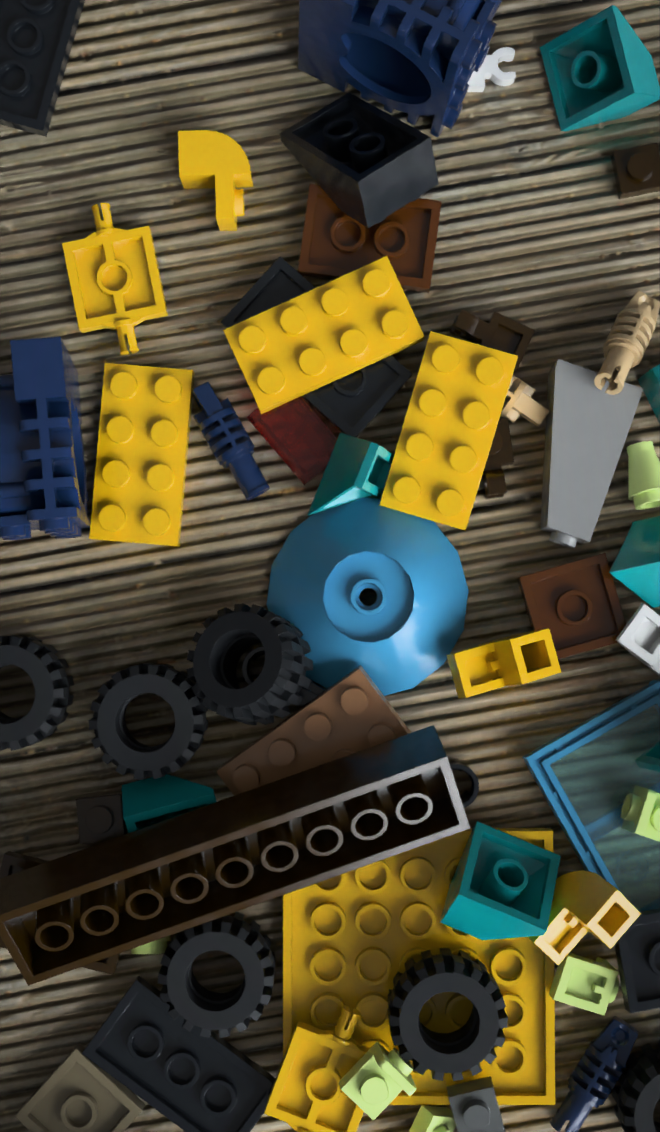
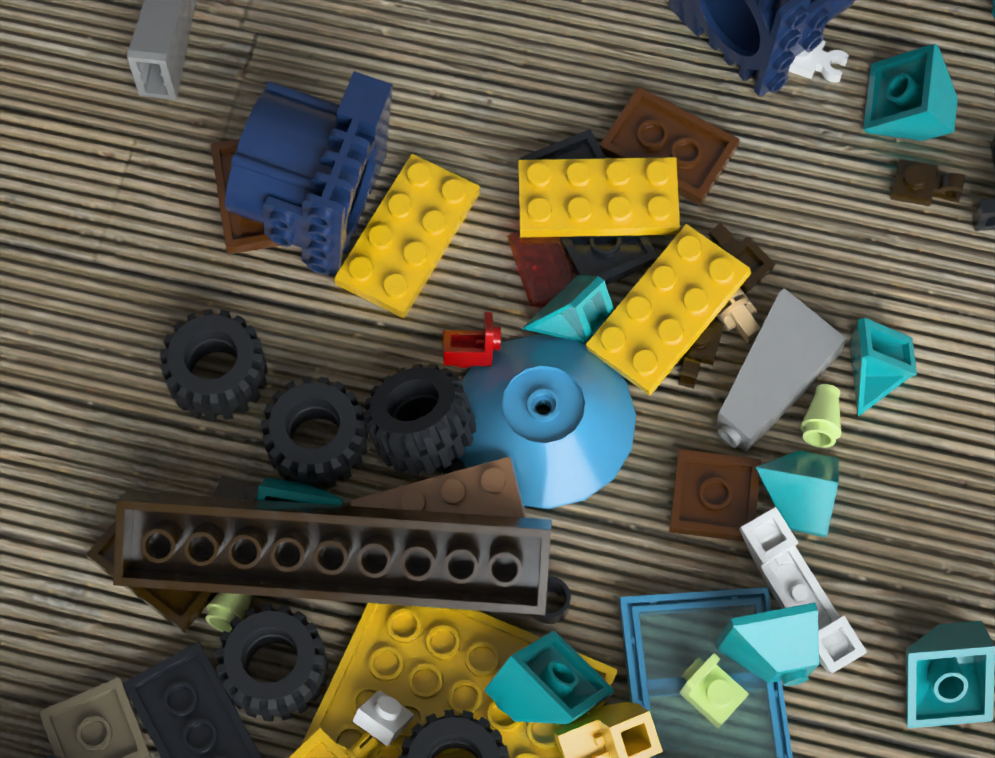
camera: 20 degrees right, 20 degrees down
(115, 279) = (450, 96): yellow plate -> none
(217, 162) = (570, 45): yellow brick -> none
(228, 440) = (484, 250): dark blue hinge -> none
(263, 554) = (471, 347): none -> red bracket
(353, 987) = (383, 717): none -> white plate
(363, 158) = (689, 82): black slope -> none
(504, 663) = (639, 513): yellow brick -> none
(627, 341) = (848, 299): tan hinge -> none

